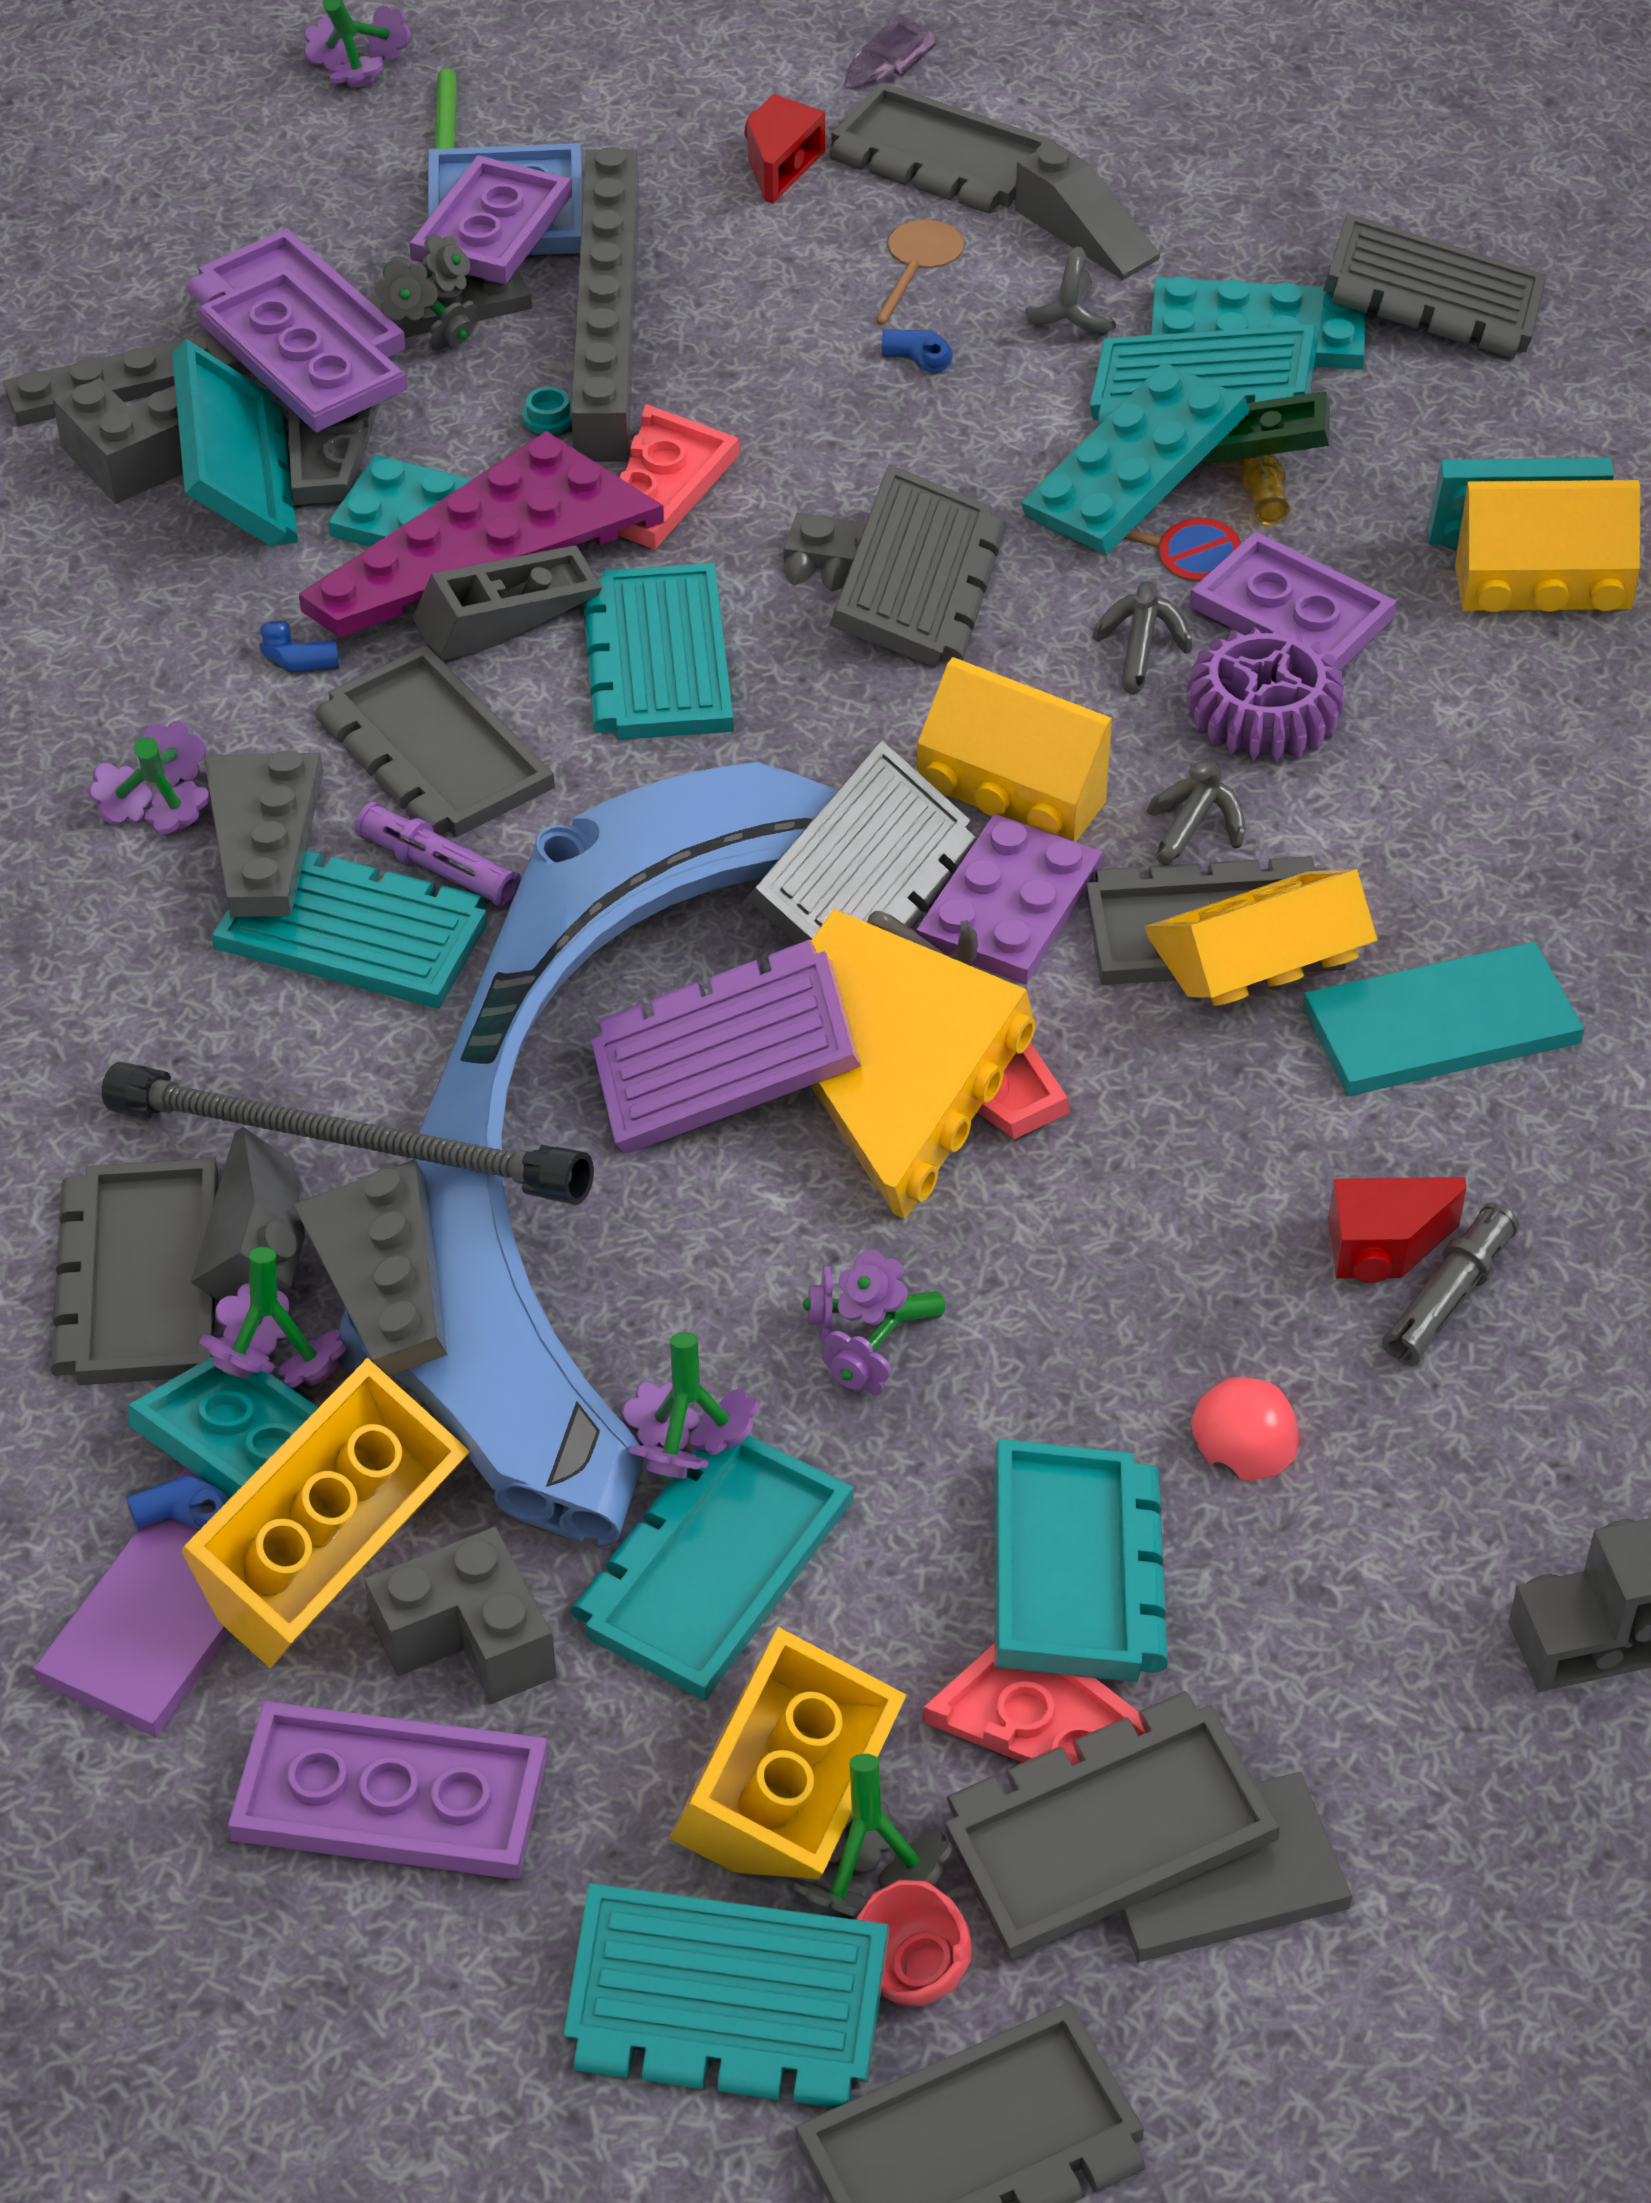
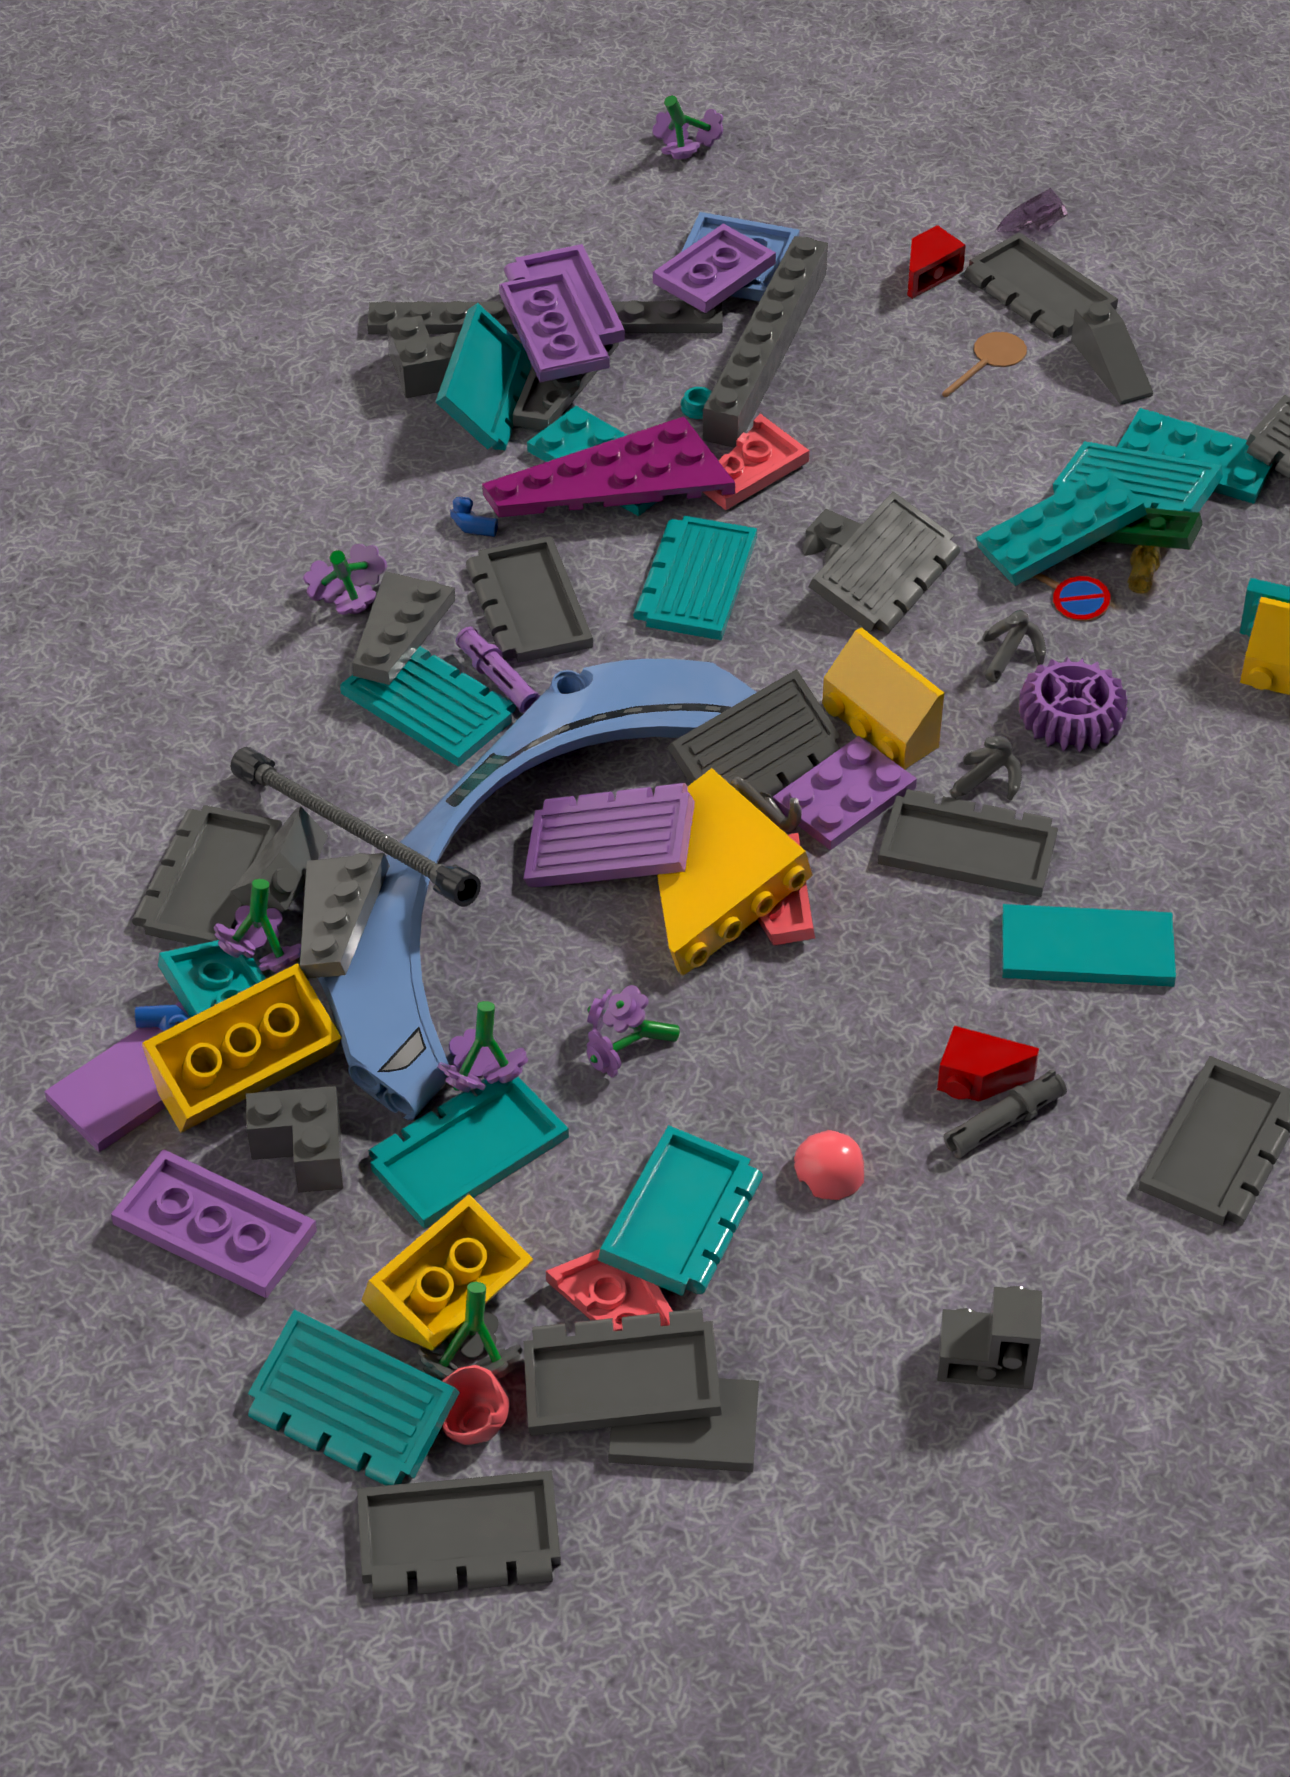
camera: 20 degrees right, 0 degrees up
(409, 291) = (638, 302): dark grey plant -> none
(445, 109) = (727, 187): bright green piece -> none
(500, 599) = (607, 519): dark grey slope -> none
(921, 346) = (961, 418): blue arm -> none
(1073, 290) = (1074, 406): dark grey piece -> none
(1265, 934) = (989, 860): yellow slope -> none
(1281, 588) = (1125, 644): medium lavender plate -> none

